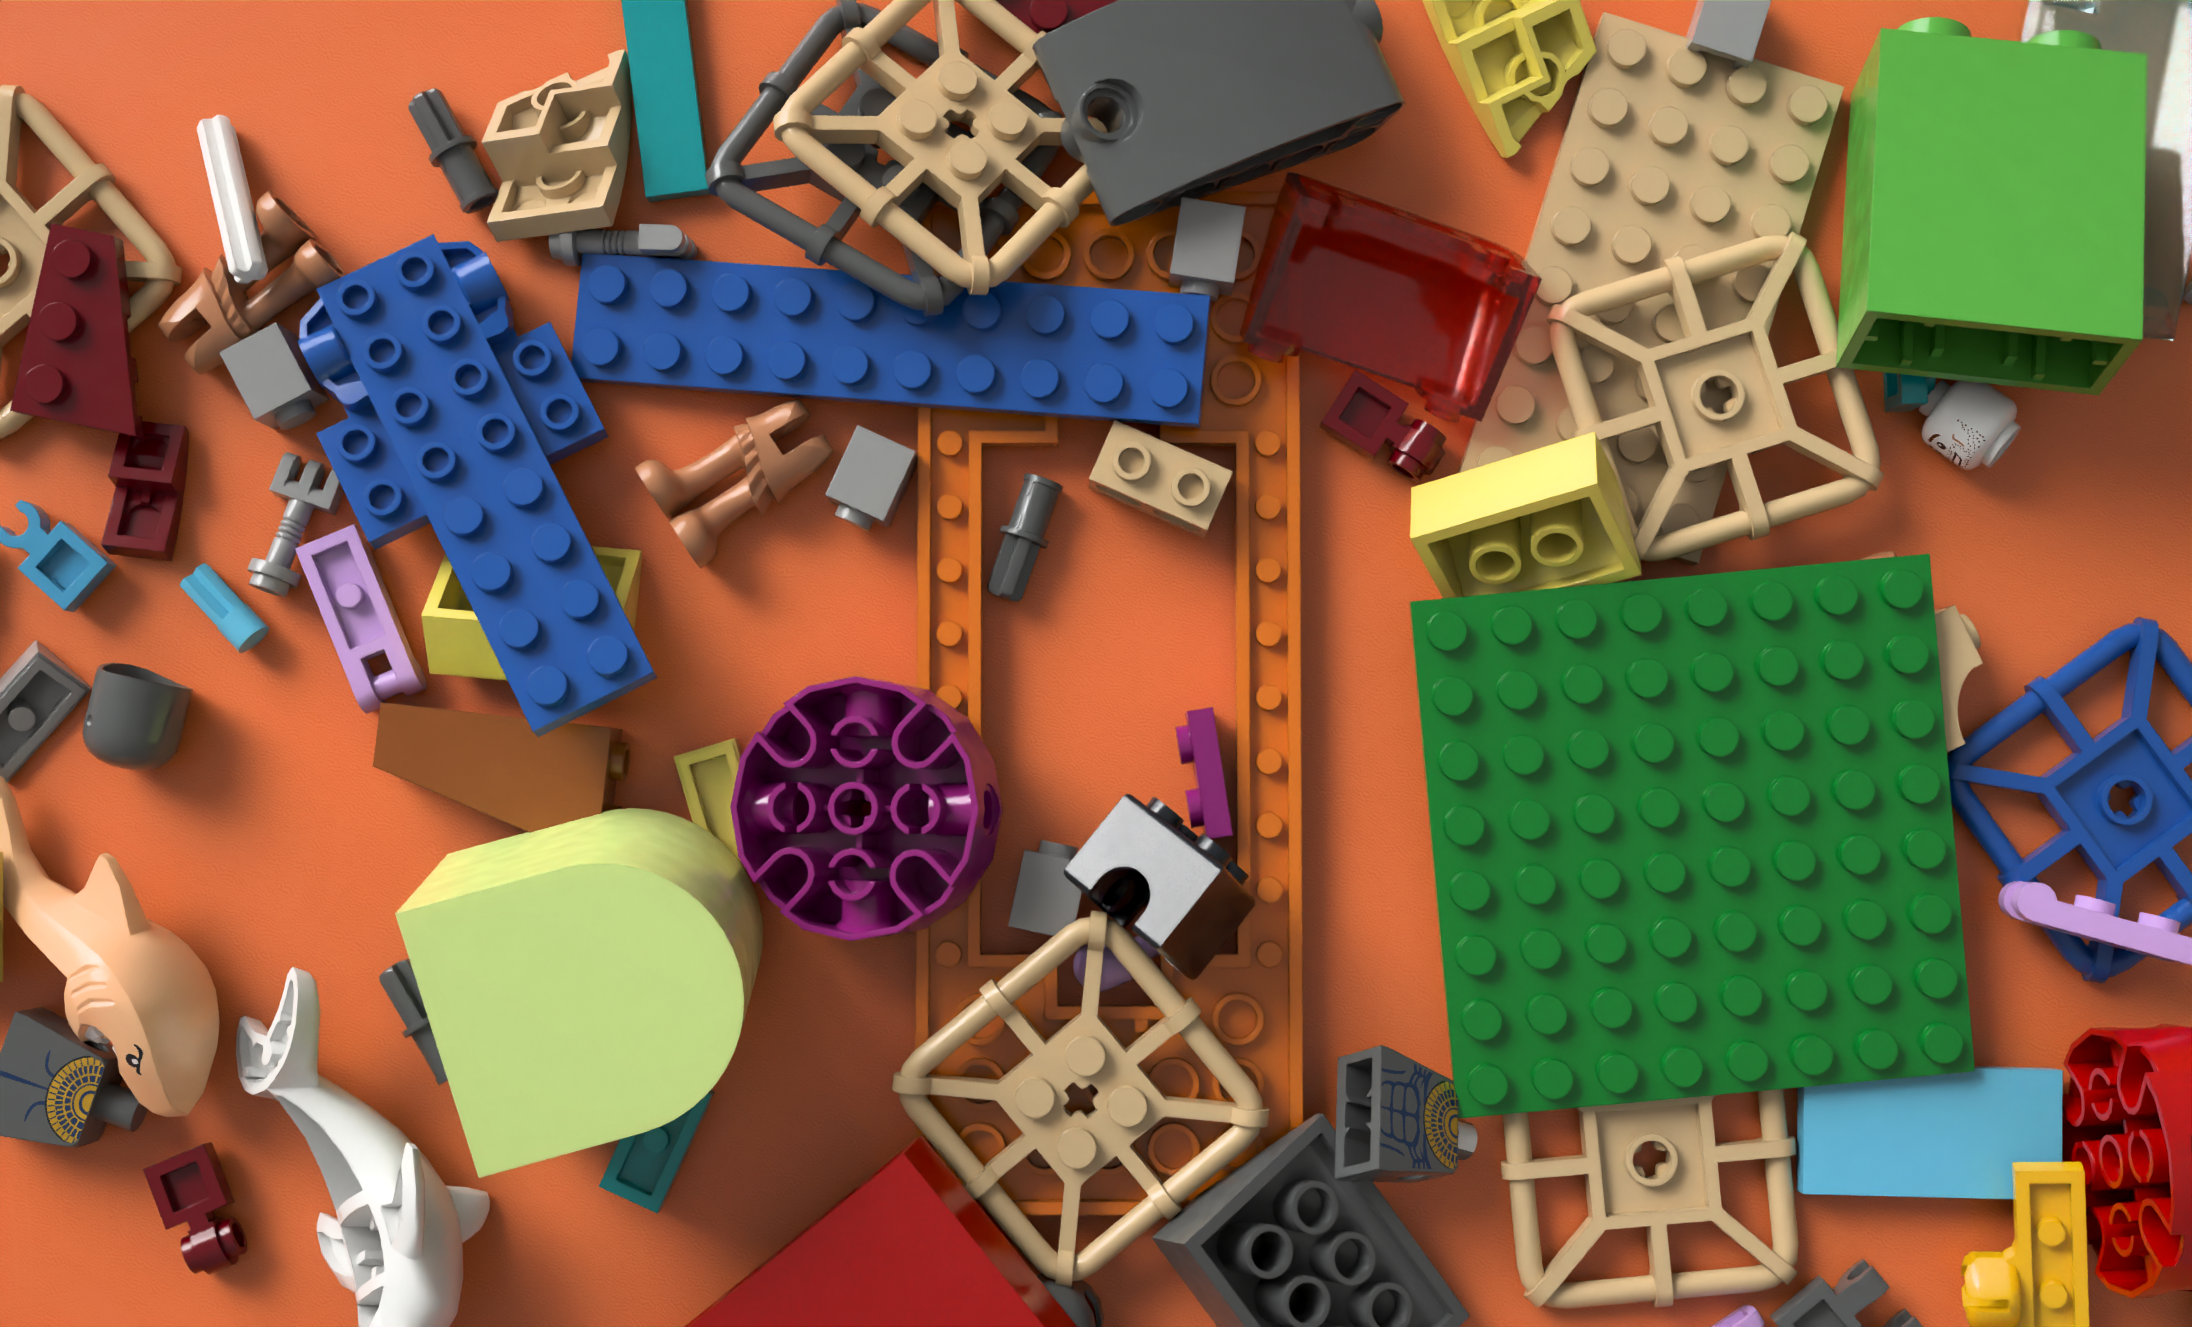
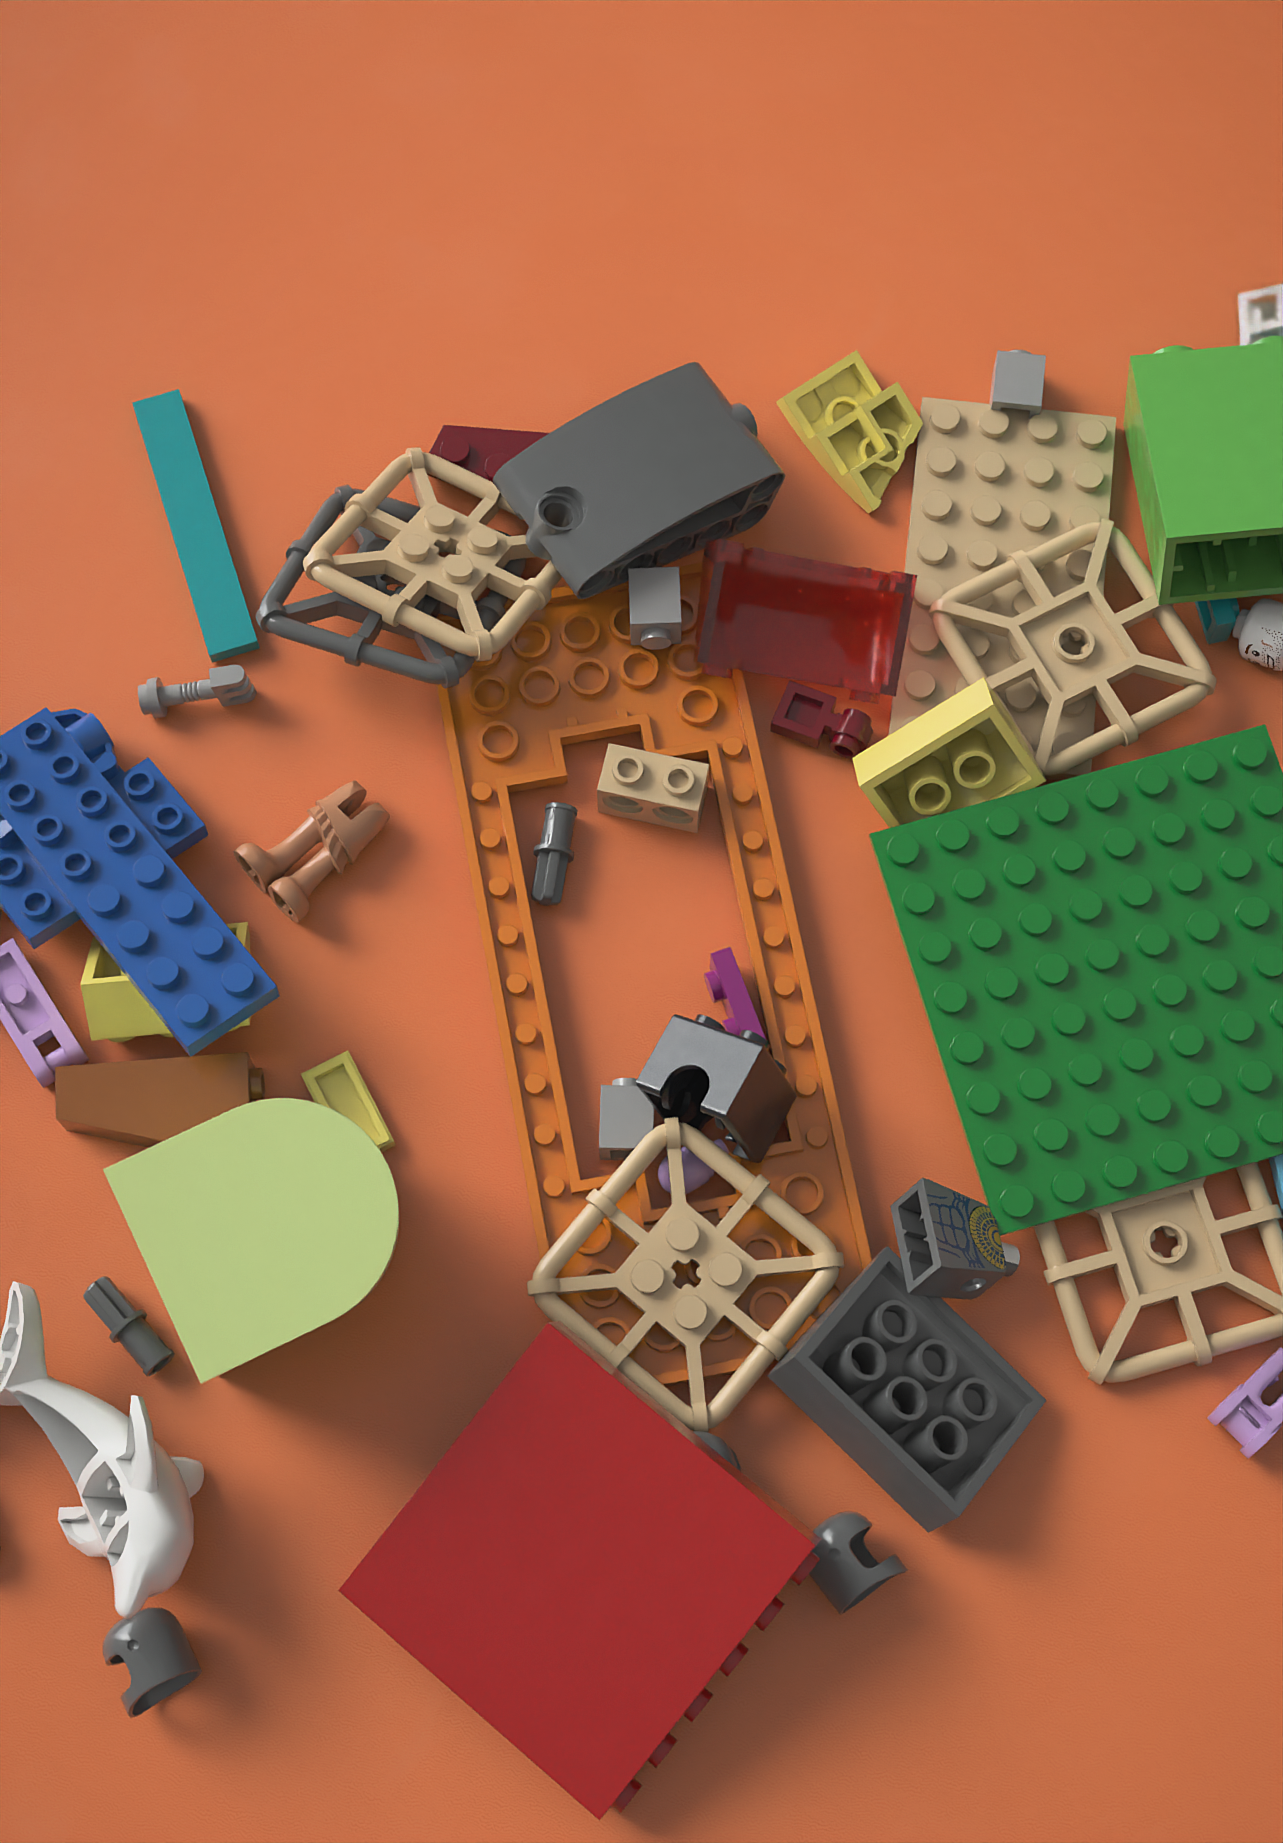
camera: 10 degrees left, 15 degrees down
(452, 151) = (52, 650): dark grey axle -> none
(561, 153) = (137, 635): tan slope -> none
(649, 1162) = (337, 1385): teal plate -> none
(805, 794) = (425, 1044): magenta brick -> none
(840, 340) = (410, 726): blue plate -> none
(871, 479) = (424, 829): light grey brick -> none

